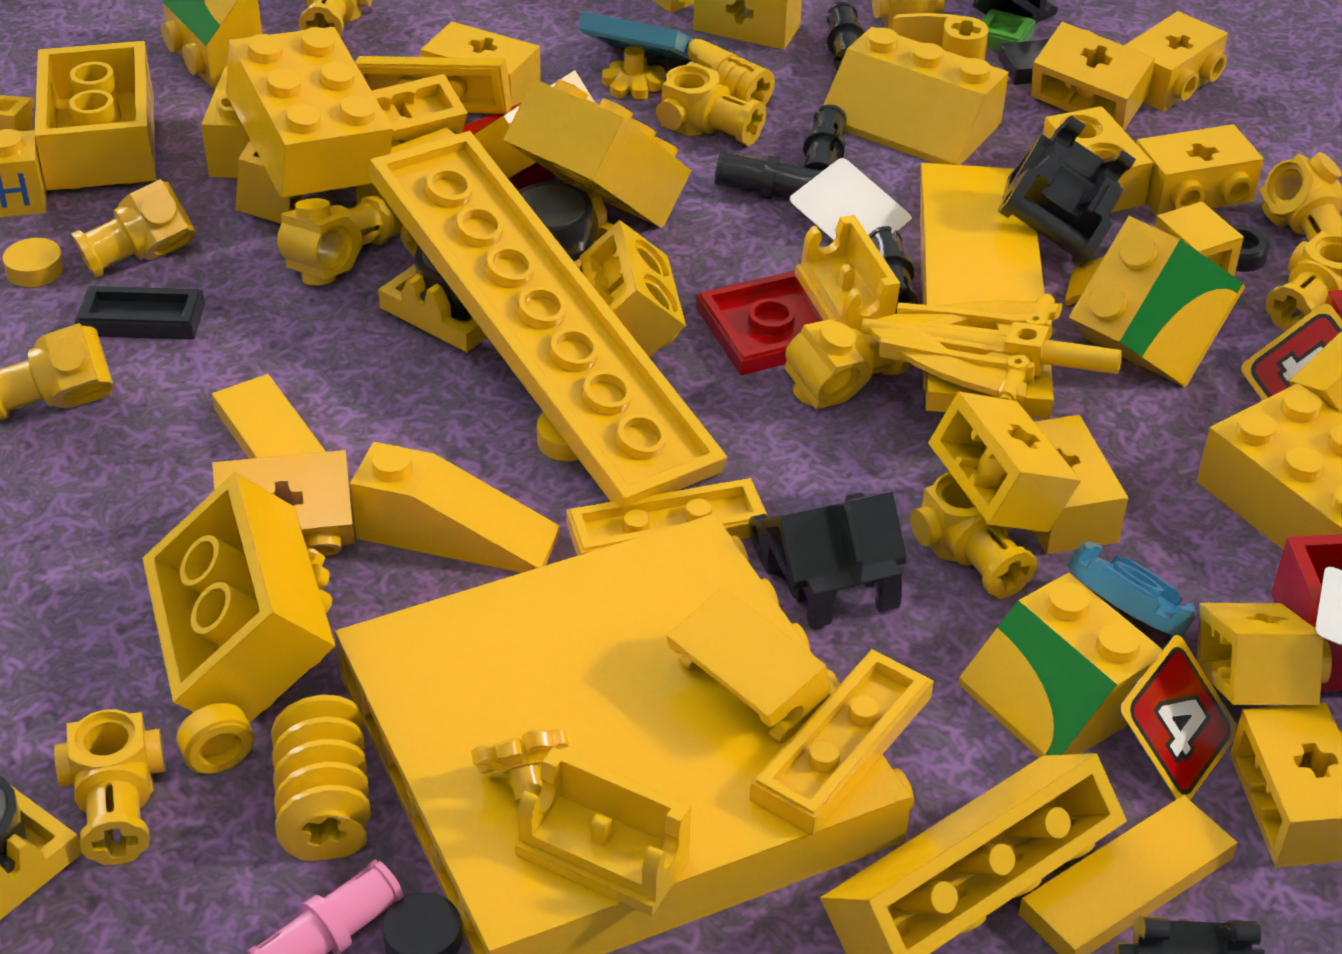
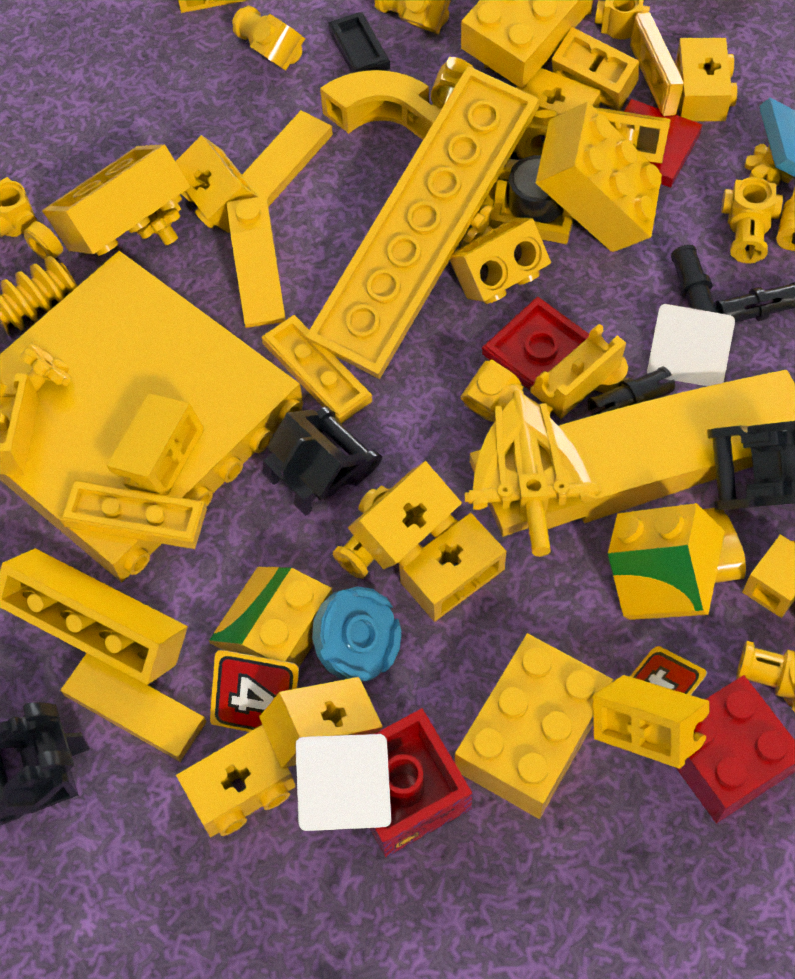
camera: 70 degrees right, 20 degrees up
(282, 300) = (379, 97): none -> yellow arch

